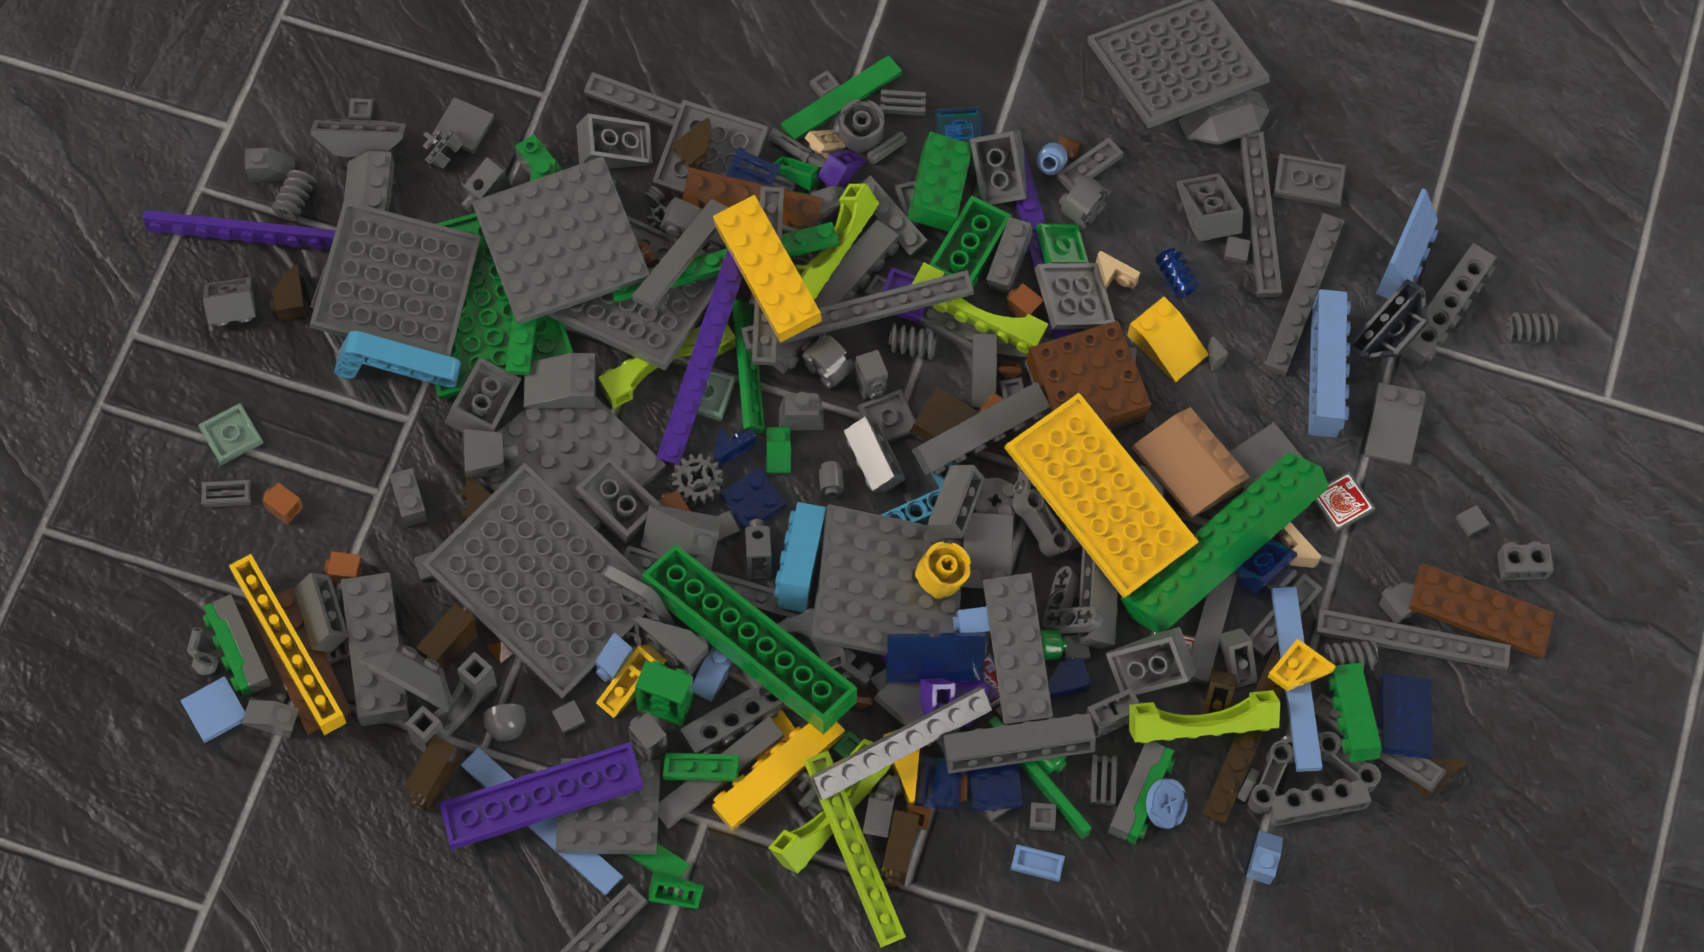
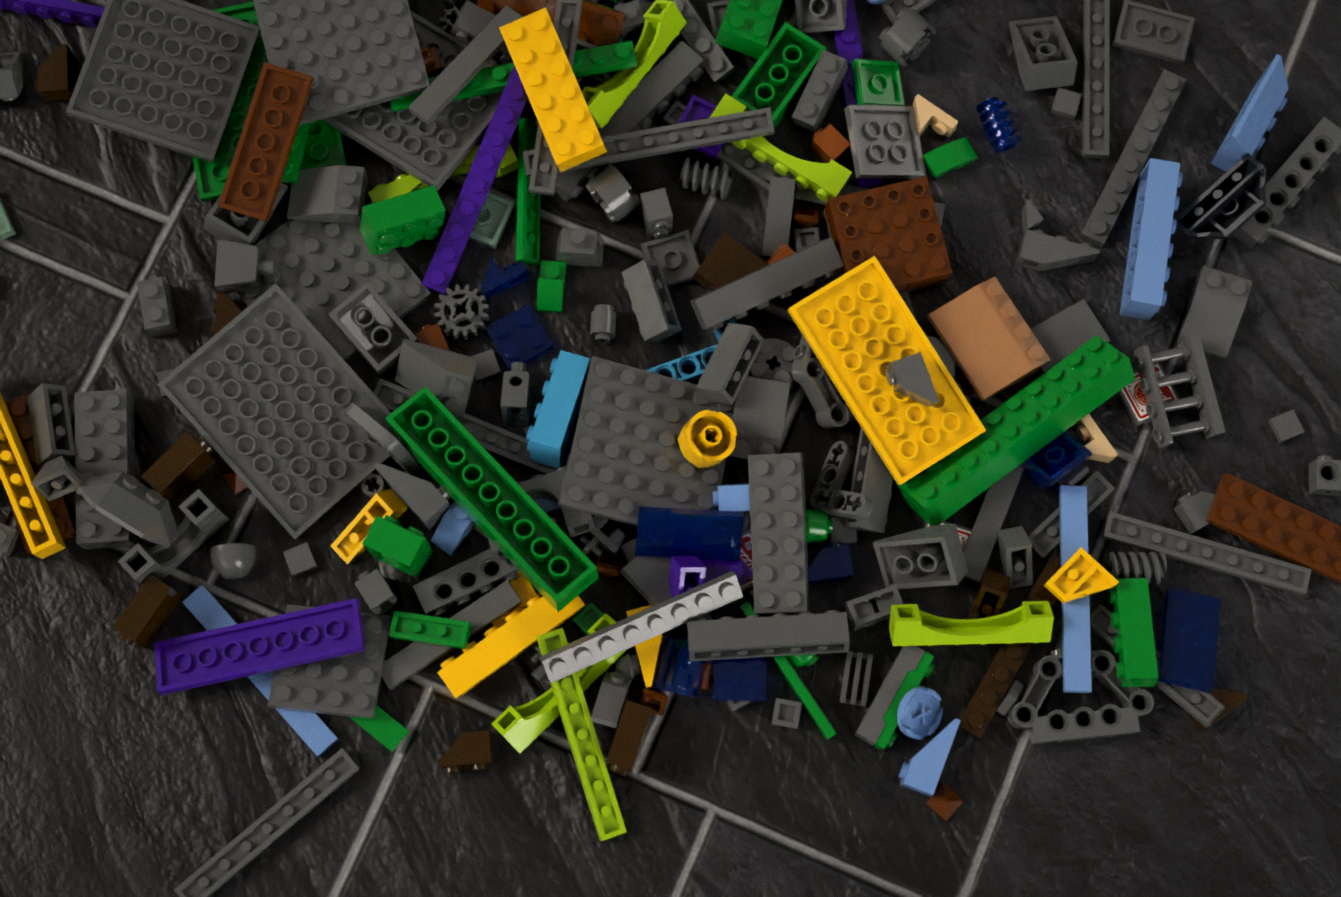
camera: 10 degrees right, 10 degrees up
(282, 503) = (26, 302): dark orange brick -> none
(337, 656) = (57, 479): none -> dark grey slope
(343, 566) = (82, 377): dark orange brick -> none
(395, 357) = (158, 156): dark azure beam -> none
(502, 337) = (266, 142): none -> reddish brown plate
(613, 658) = (349, 502): medium blue slope -> none
(634, 399) = (402, 220): none -> green brick
(677, 883) = (378, 750): green slope -> none
(749, 876) = (469, 749): none -> dark brown slope
(1037, 863) = (776, 762): medium blue tile -> none
(1126, 499) = (912, 379): none -> dark grey slope
(1134, 305) = (949, 157): none -> green slope
(1167, 339) = (979, 198): yellow slope -> none
(1177, 852) = (926, 765): none -> medium blue slope
(1198, 884) = (944, 802): none -> reddish brown slope
(1236, 383) = (1047, 252): none -> dark grey slope
(1265, 857) = (1019, 779): medium blue slope -> none
(1388, 484) = (1202, 387): none -> dark grey fence

